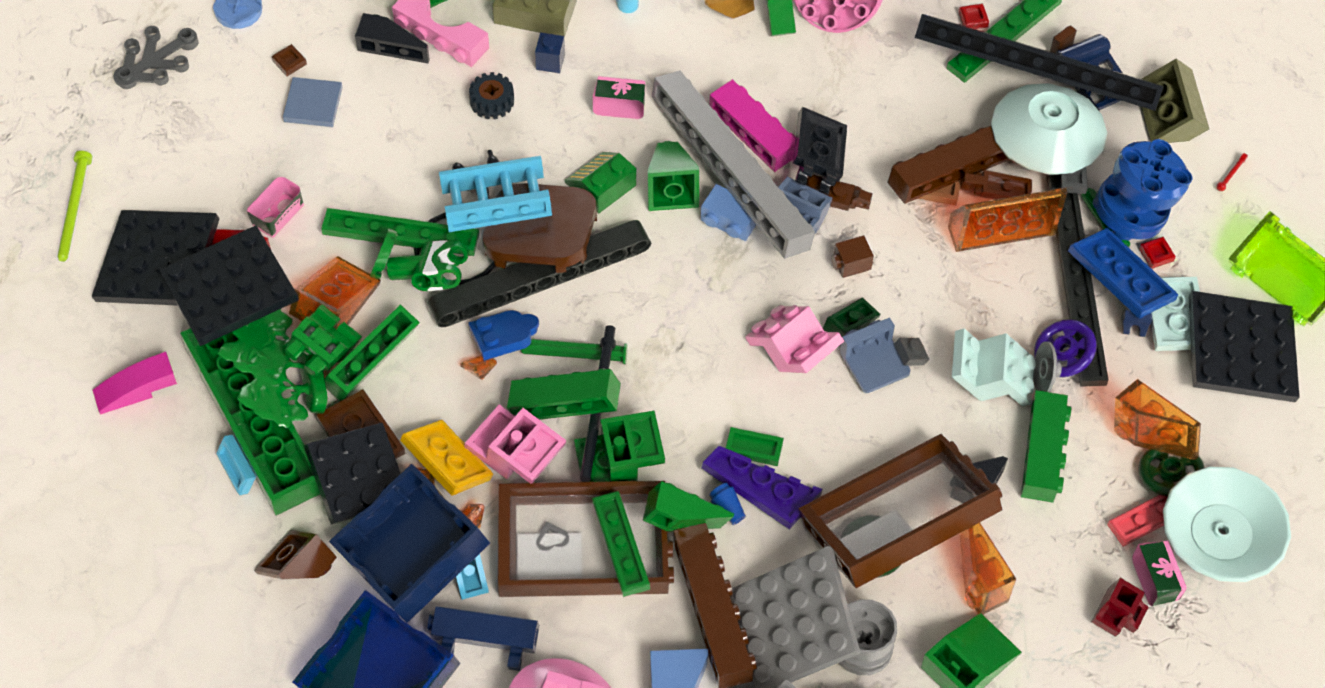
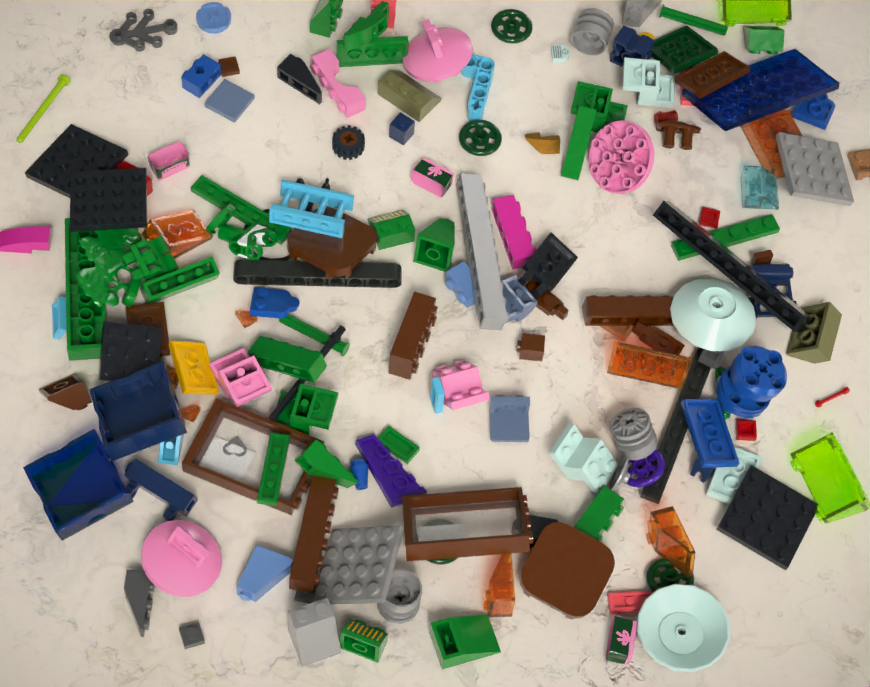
camera: 20 degrees right, 0 degrees up
(260, 84) = (201, 75): none -> blue brick
(650, 21) = (480, 133): none -> dark green plate
(704, 301) = (413, 335): none -> reddish brown brick
(774, 363) = (437, 395): none -> medium azure tile
(854, 316) = (508, 387): dark green slope -> none
(911, 351) = (536, 426): dark grey plate -> none
(1037, 310) = (633, 433): none -> light grey wheel
(1051, 514) = (567, 570): none -> reddish brown tile
(1121, 608) = (582, 651): dark red brick -> none

